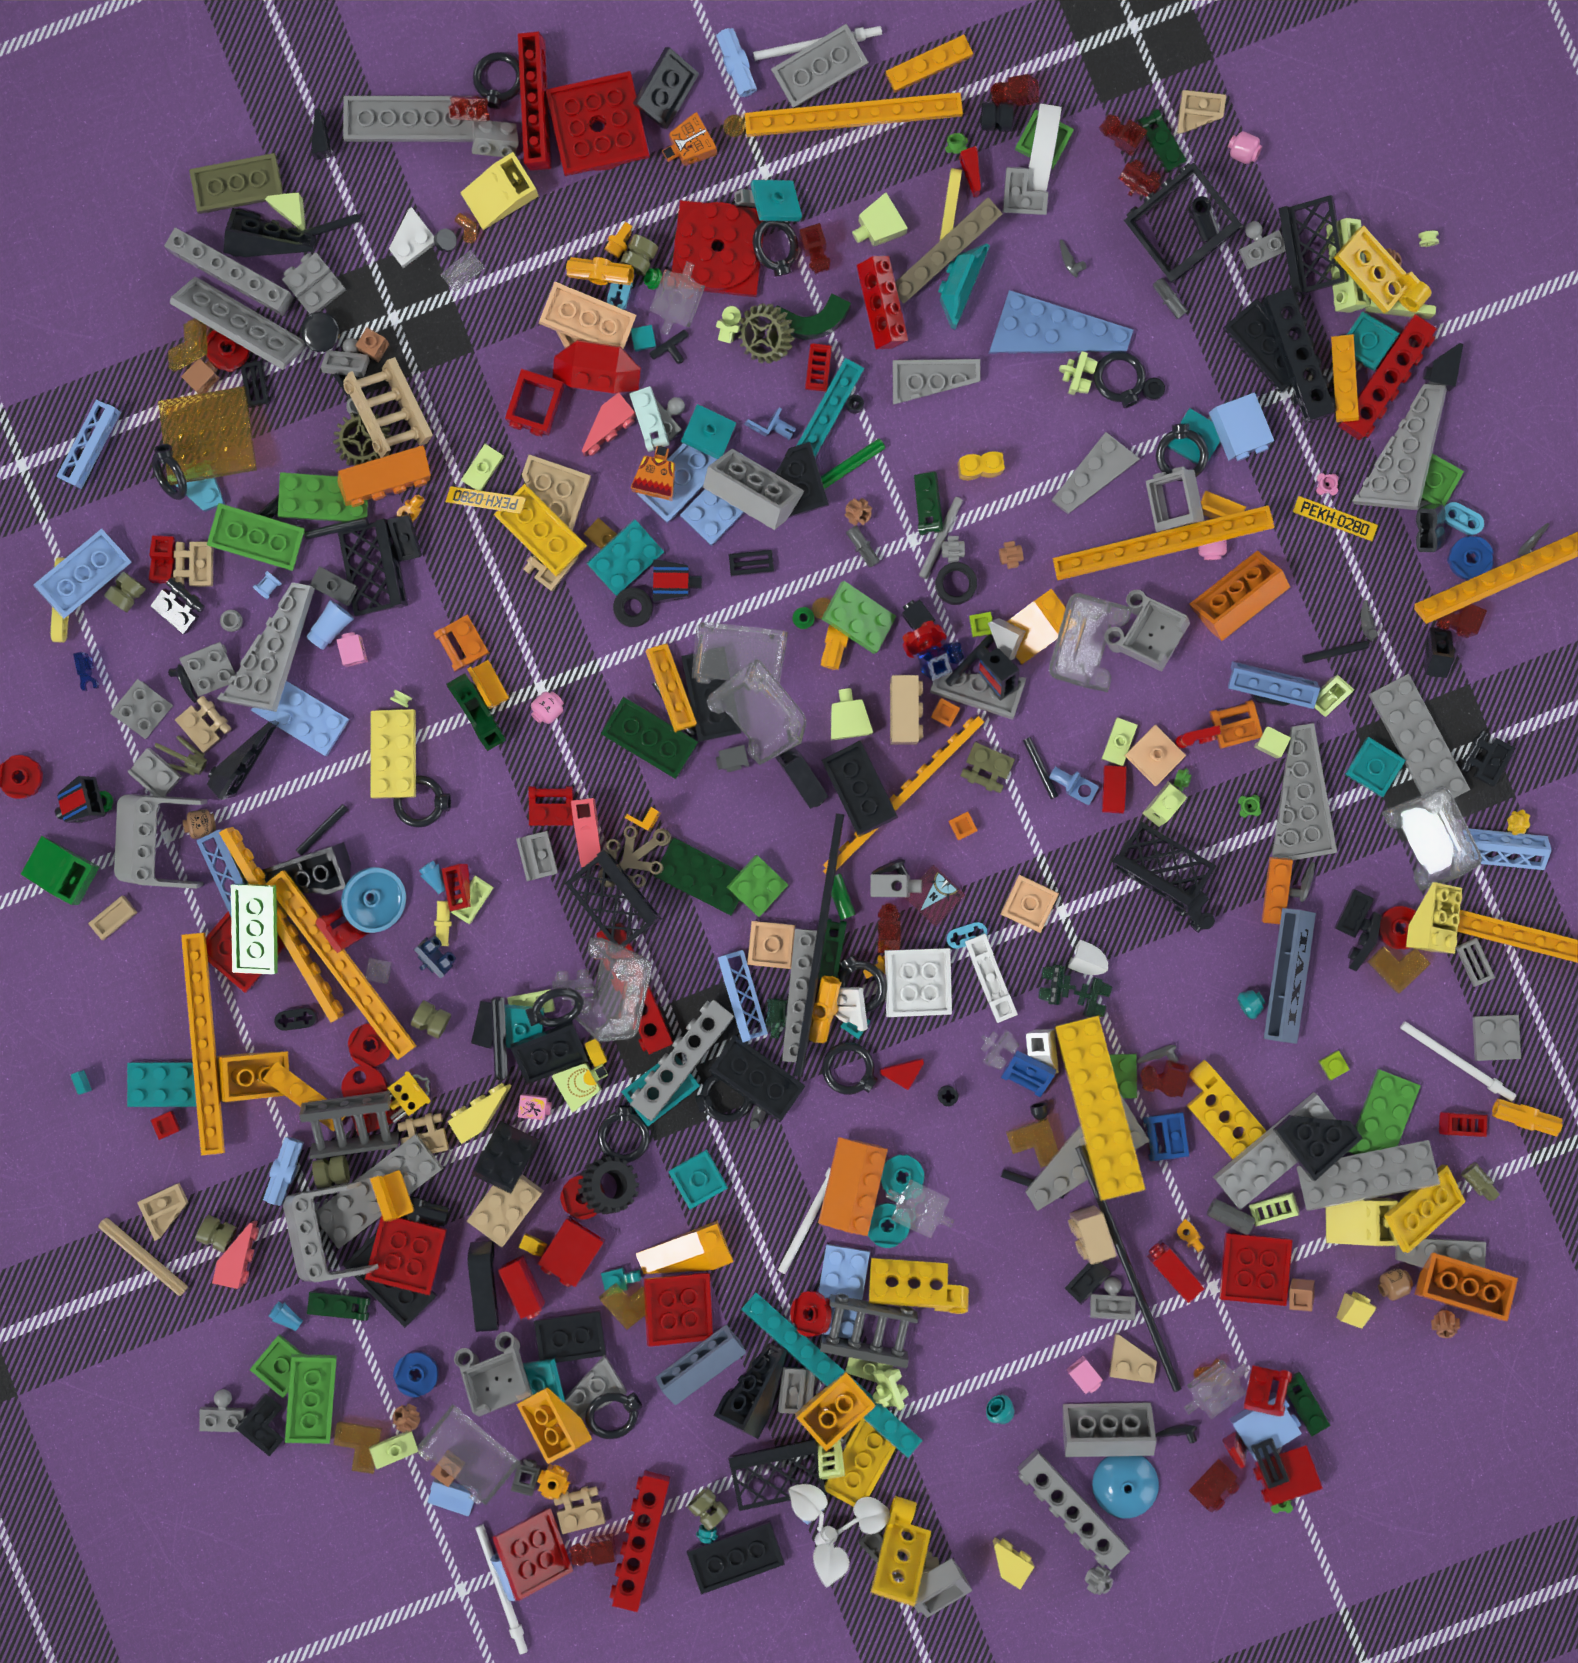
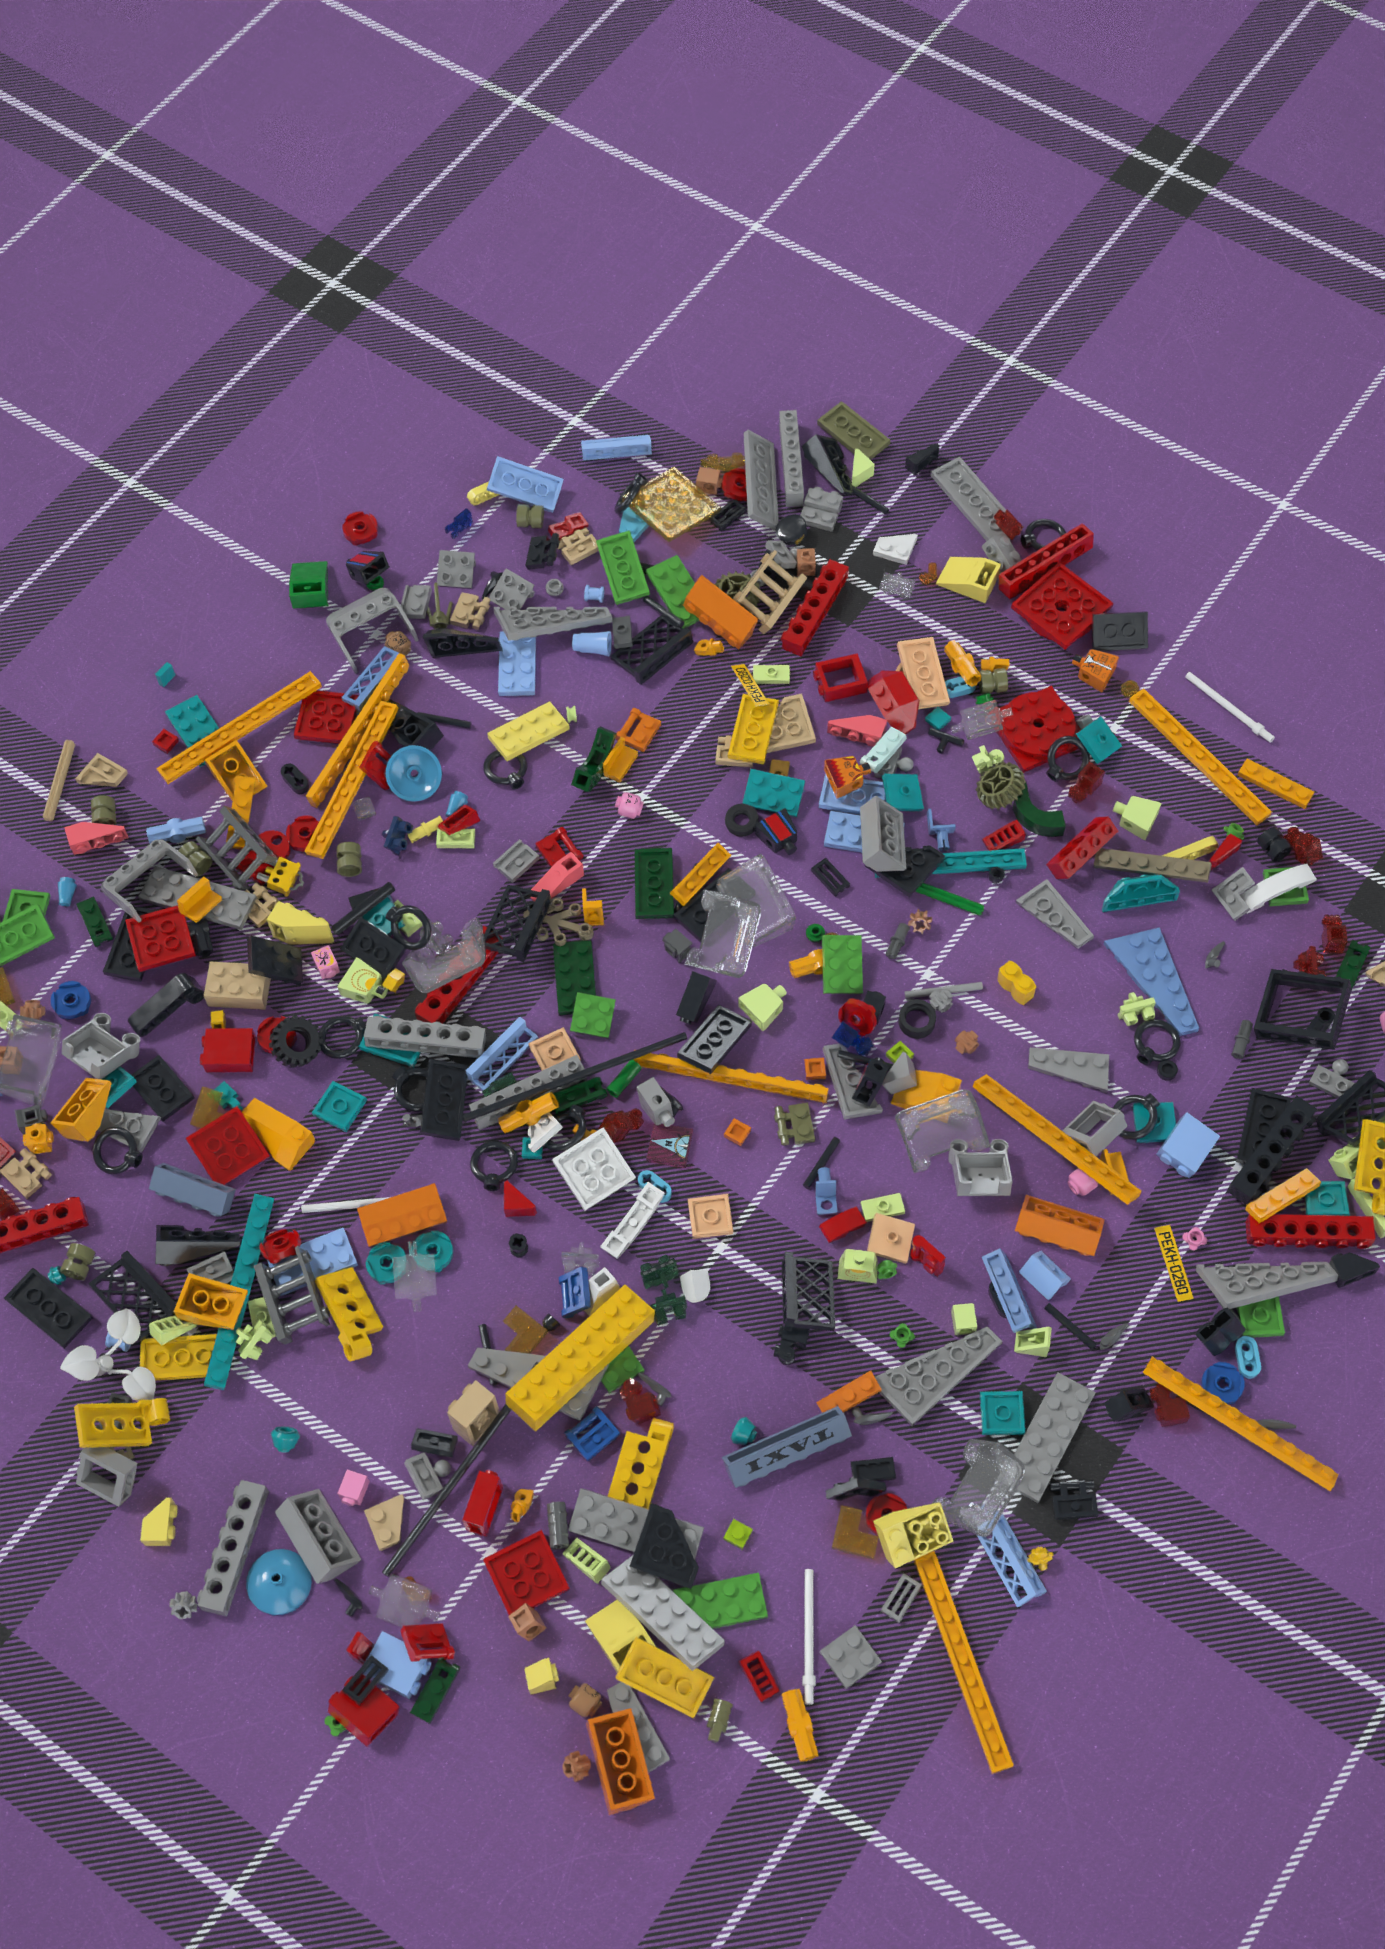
camera: 60 degrees right, 25 degrees down
(112, 917) = (296, 632): tan tile -> none
(254, 928) = (343, 710): plate -> none
(351, 649) = (584, 666): bright pink brick -> none
(404, 537) = (687, 652): black plate -> none
(408, 321) = (815, 607): none -> red brick
(445, 240) = (910, 565): tile -> none
(522, 1287) = (180, 1028): red brick -> none
(736, 62) = (1173, 665): light blue piece -> none
(819, 66) = (1214, 714): light grey plate -> none
(905, 710) = (795, 1034): tan brick -> none
(928, 503) = (962, 965): dark green plate -> none
(1215, 1486) = (319, 1657): clear red bracket -> none
(1238, 731) = (953, 1288): orange plate -> none
(1276, 641) = (1044, 1274): none -> light blue panel

